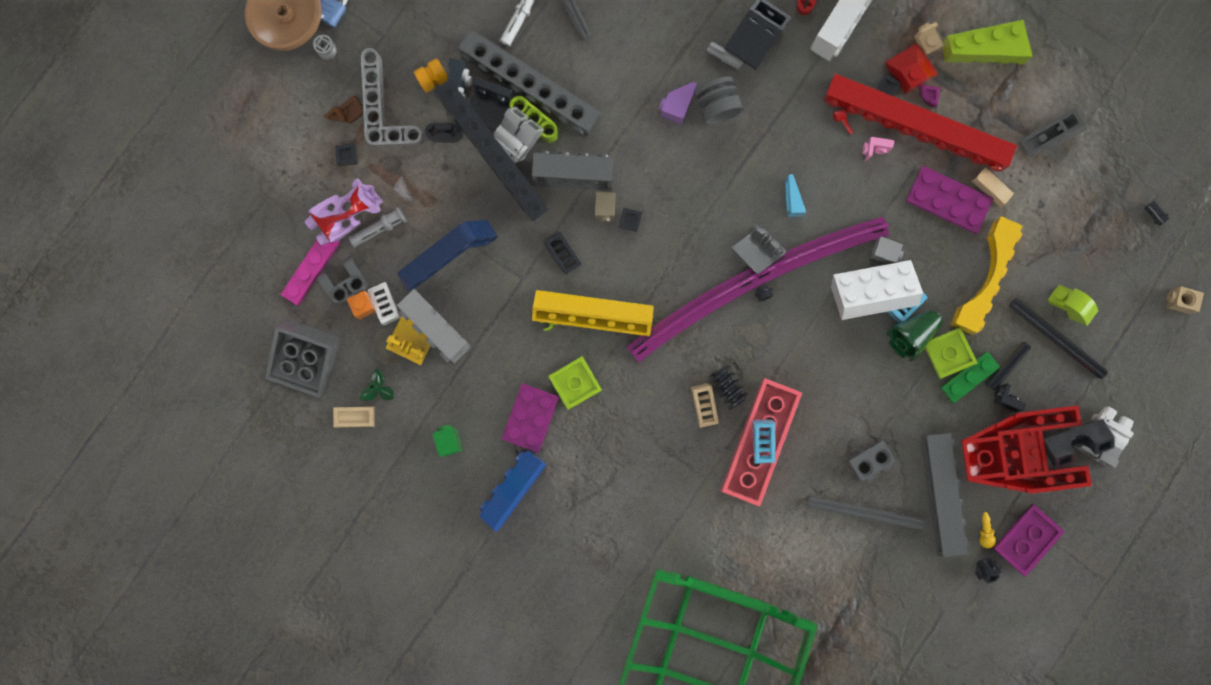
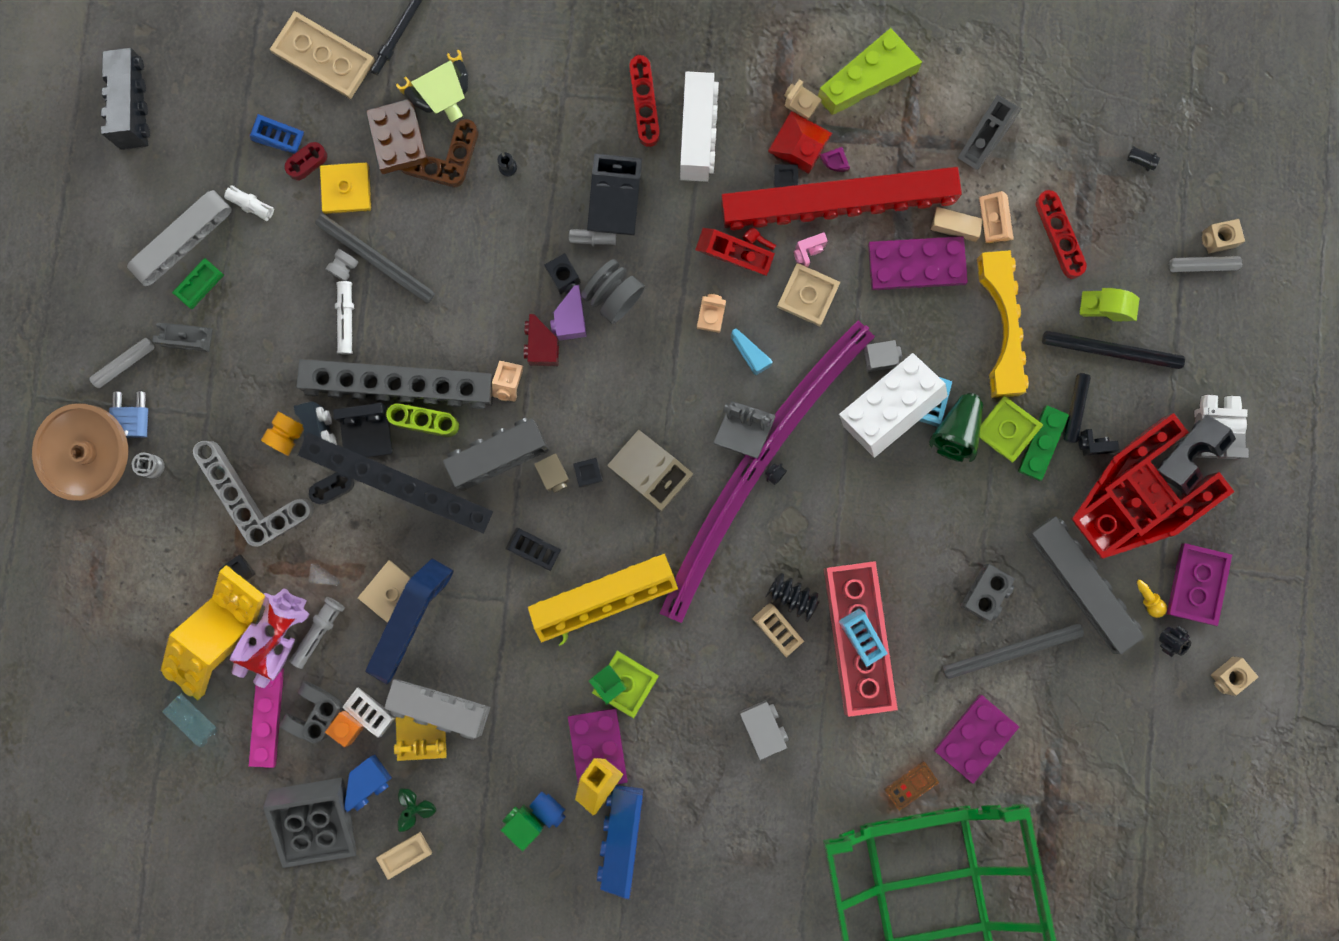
camera: 25 degrees left, 0 degrees up
(257, 240) = (190, 720): none -> clear light blue hinge
(305, 186) = (211, 633): none -> yellow bracket
(347, 112) = (212, 523): reddish brown slope -> none
(355, 349) = (363, 781): none -> blue slope
(441, 223) = (385, 590): none -> tan plate
(471, 440) = (548, 810): none -> blue brick
(516, 440) = (597, 784): none -> yellow slope
(517, 134) = (413, 449): light grey hips -> none
(563, 375) = (608, 684): none -> green panel
(608, 124) = (506, 381): none -> light nougat bracket
(647, 112) = (542, 344): none -> dark red slope
(655, 469) = (763, 729): none -> light grey brick
(676, 243) = (650, 470): none -> dark tan slope
(689, 62) = (558, 265): none -> black brick
(739, 568) = (911, 785): none -> clear orange tile
(780, 155) = (711, 313): none -> light nougat bracket
(804, 560) = (976, 738): none -> magenta plate
(821, 119) = (734, 251): none -> red slope
(857, 179) = (808, 294): none -> tan plate
(1024, 198) = (996, 217): none -> light nougat slope
(1025, 621) = (1243, 673): none -> tan brick
(1069, 236) = (1065, 232): none -> red beam
(1160, 313) = (1205, 264): none -> light grey axle

